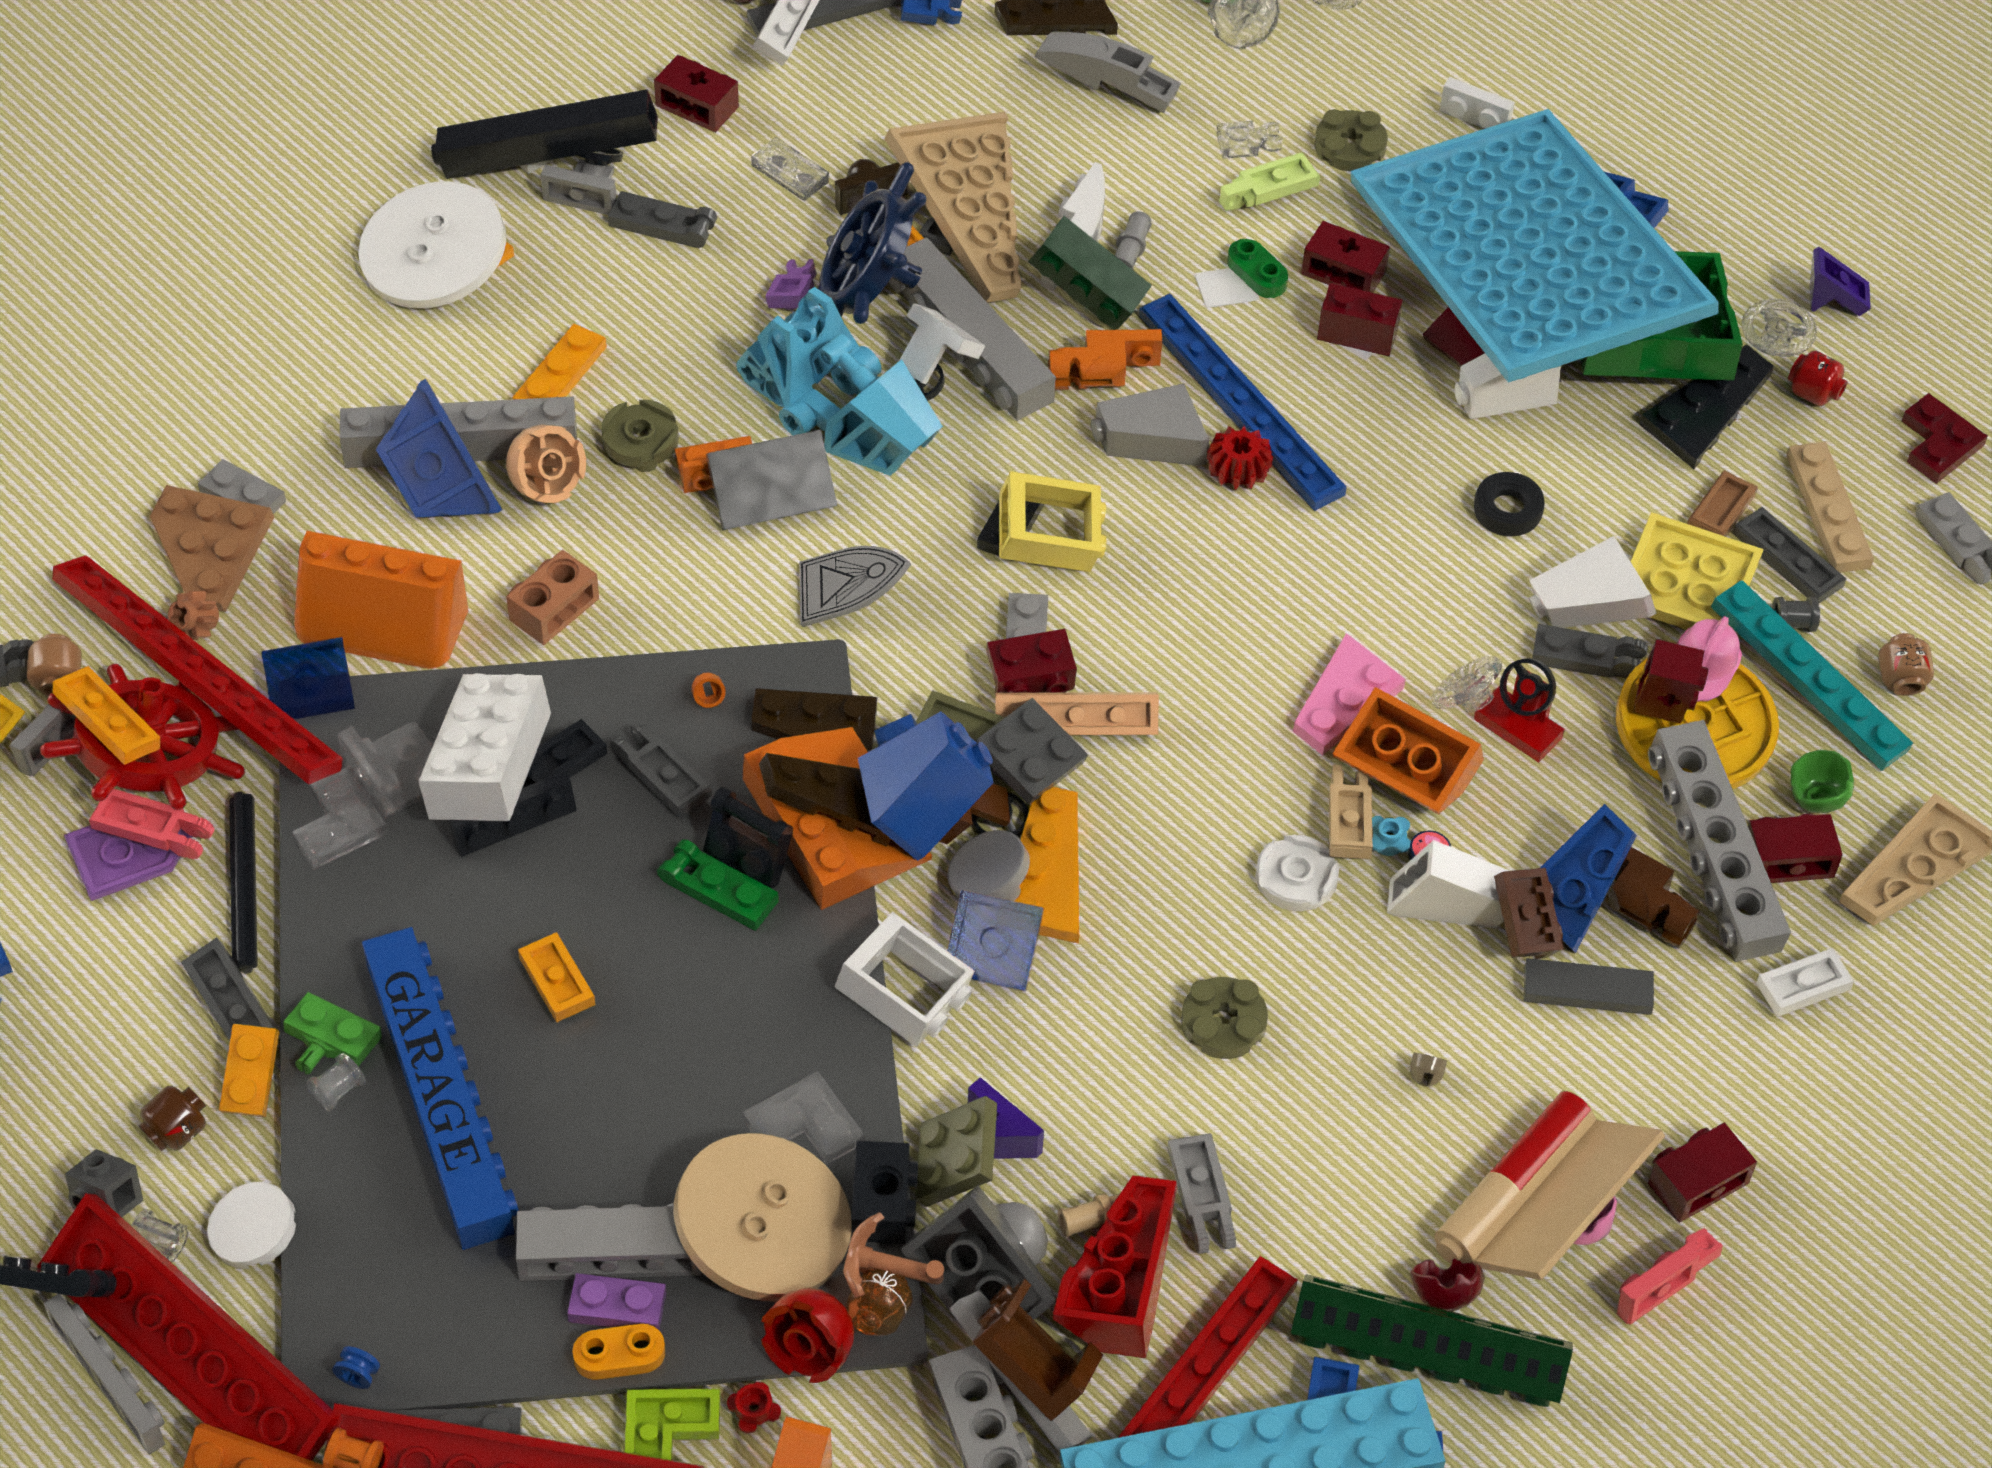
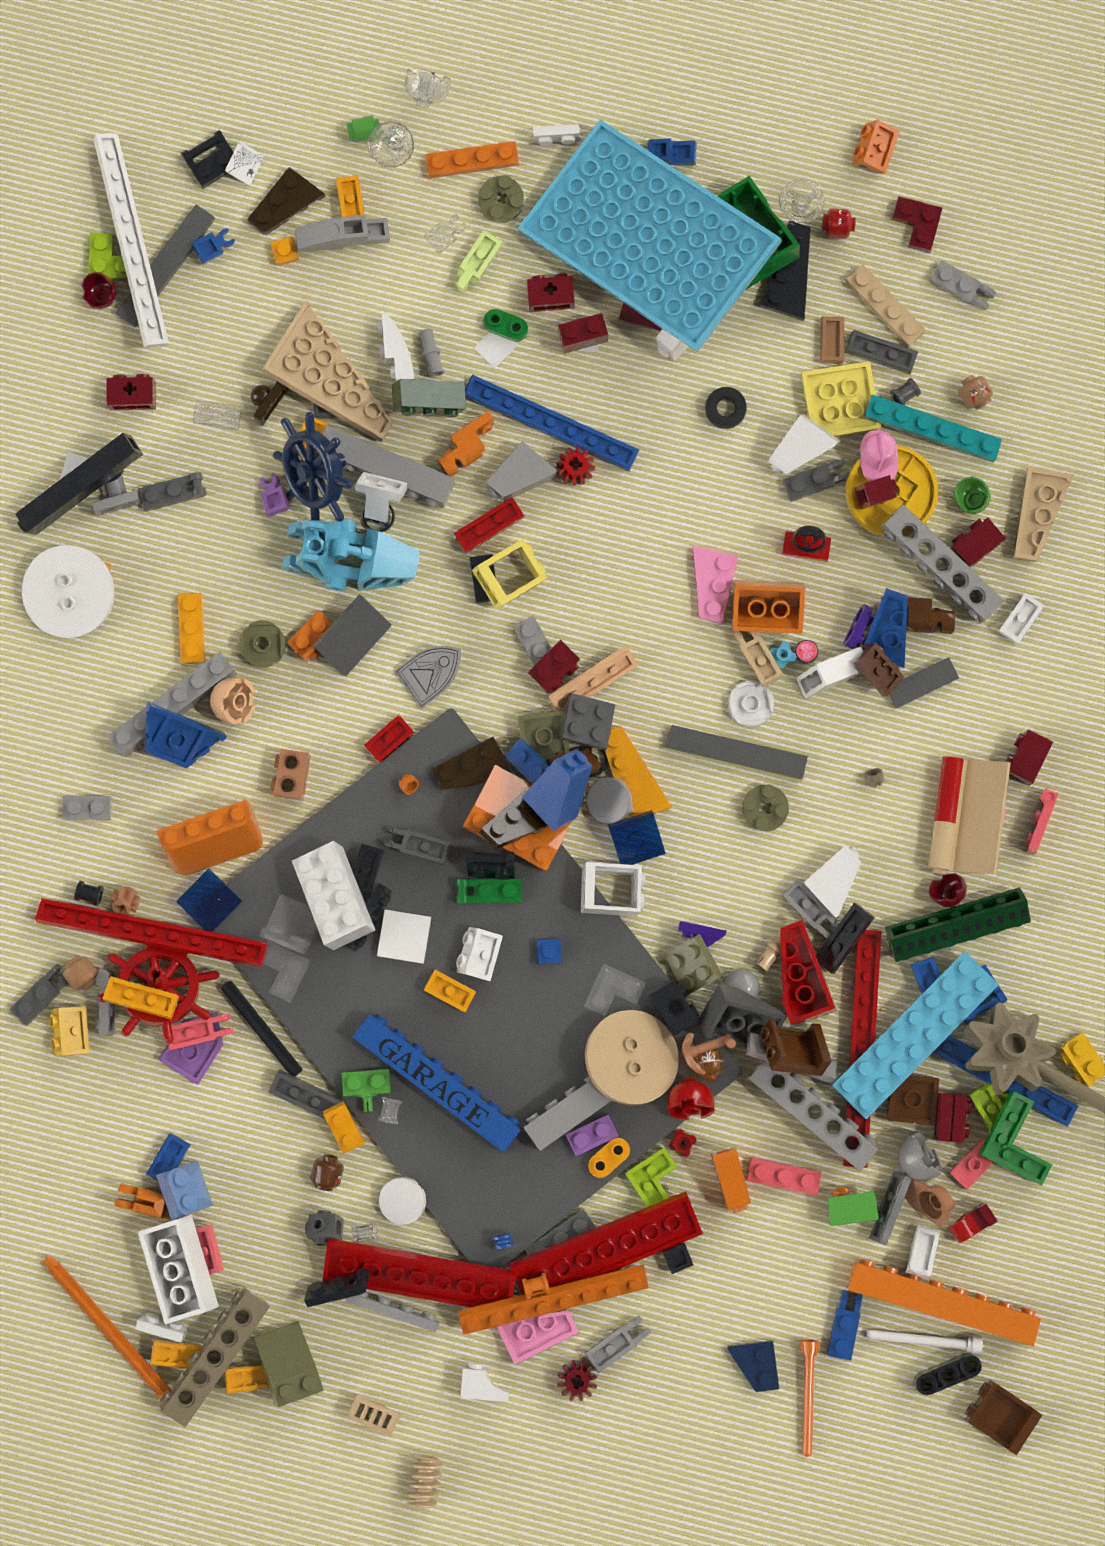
camera: 25 degrees left, 30 degrees up
(154, 583) = (89, 893): none -> black bush
(209, 539) = (95, 850): medium nougat plate -> none
(546, 873) = (404, 936): none -> white tile
(641, 953) = (479, 953): none -> white bracket
(725, 628) = (389, 738): none -> red plate
(747, 1013) = (549, 951): none -> blue plate
(1017, 57) = (284, 251): none -> light orange plate
(1068, 461) = (489, 525): none -> red plate
(1153, 37) = (350, 196): none -> light orange plate
(1228, 1252) = (844, 938): none -> black plate
(1232, 922) = (737, 752): none -> dark grey tile
(1270, 1165) = (834, 879): none -> white slope
(1342, 85) = (472, 159): none -> orange plate
(1469, 684) = (776, 544): clear piece -> none
(1535, 852) = (862, 619): none -> dark purple plate
(1836, 281) = (817, 149): dark purple slope -> none
(1931, 325) = (875, 146): none -> orange bracket

